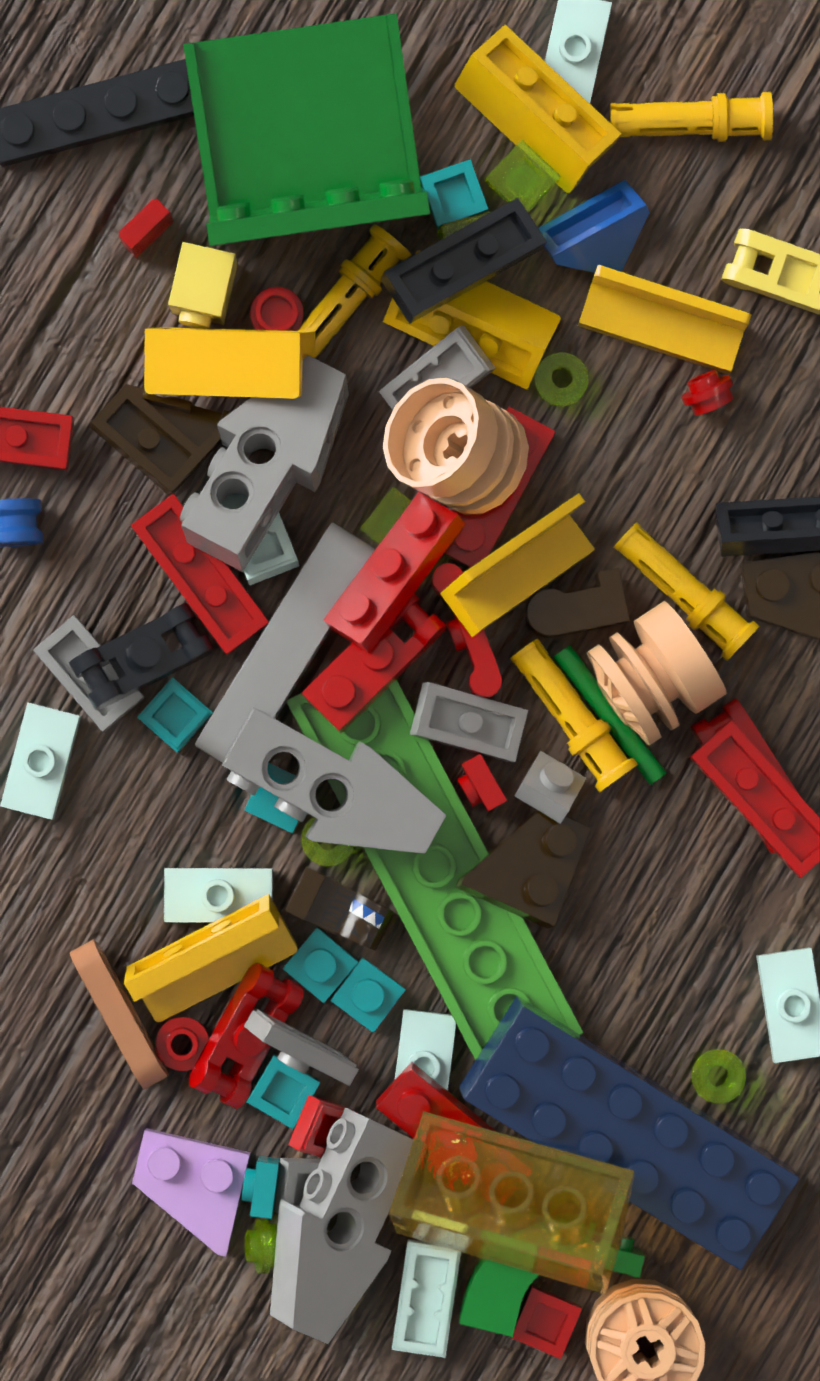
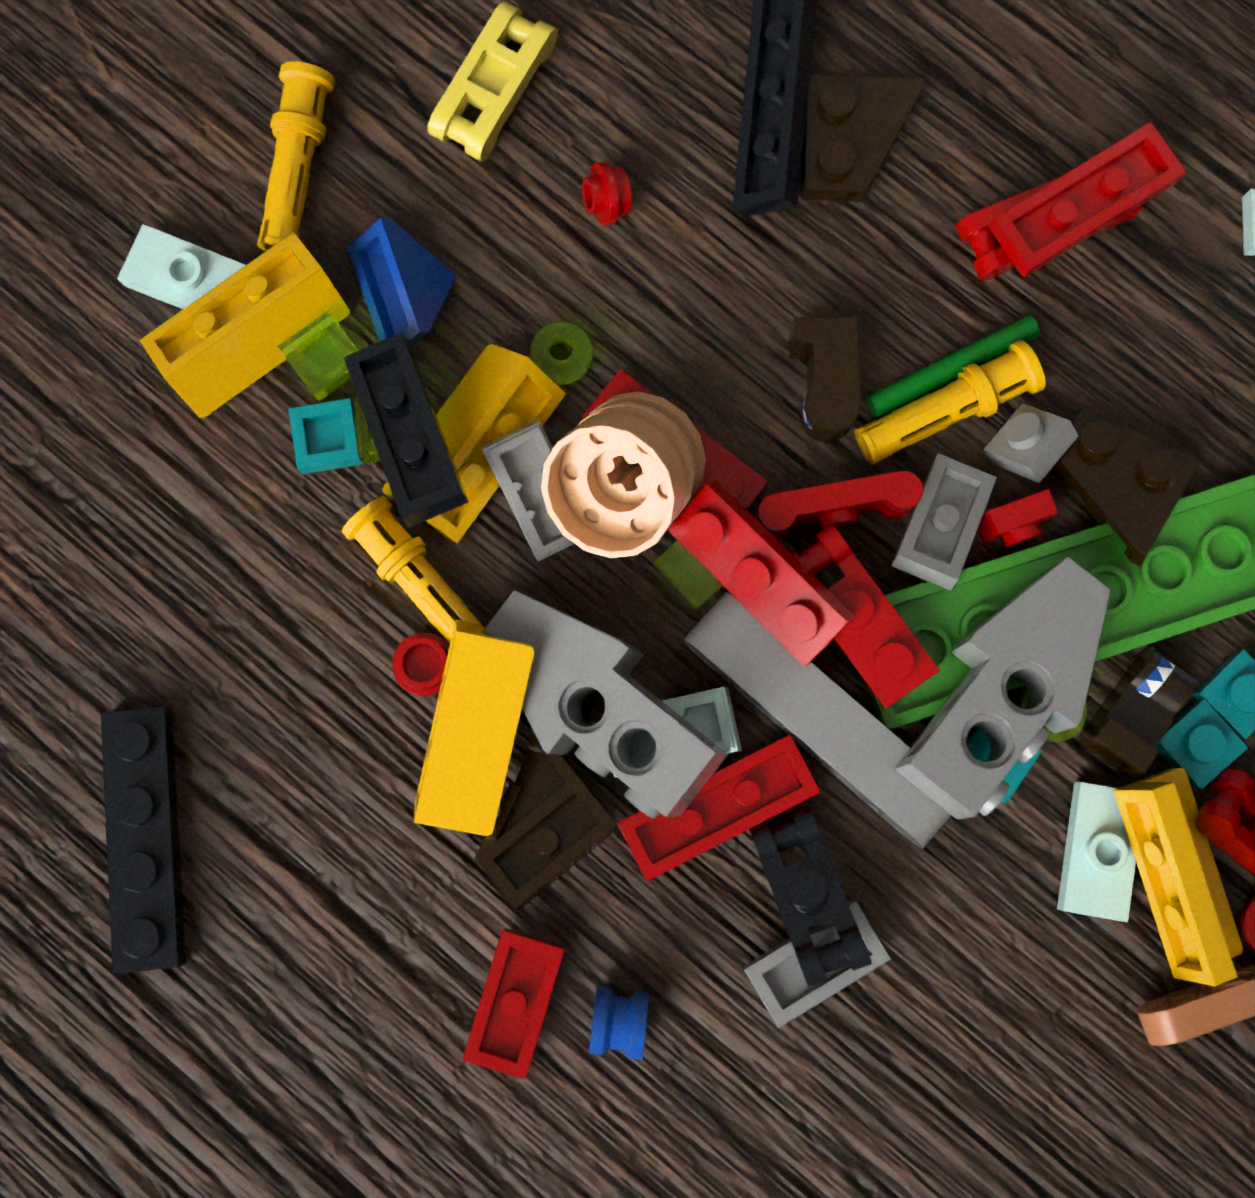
camera: 75 degrees left, 5 degrees down
(40, 761) = (910, 1041): light aqua plate -> none
(145, 227) = (291, 801): red tile -> none
(175, 715) = (878, 866): teal tile -> none
(202, 285) = (374, 745): light yellow brick -> none
(304, 129) = (212, 590): green bracket -> none
(518, 568) = (778, 432): yellow panel -> none
(656, 673) = (920, 284): light nougat wheel -> none
(664, 319) = (512, 228): yellow panel -> none
(704, 607) = (848, 239): yellow pin -> none

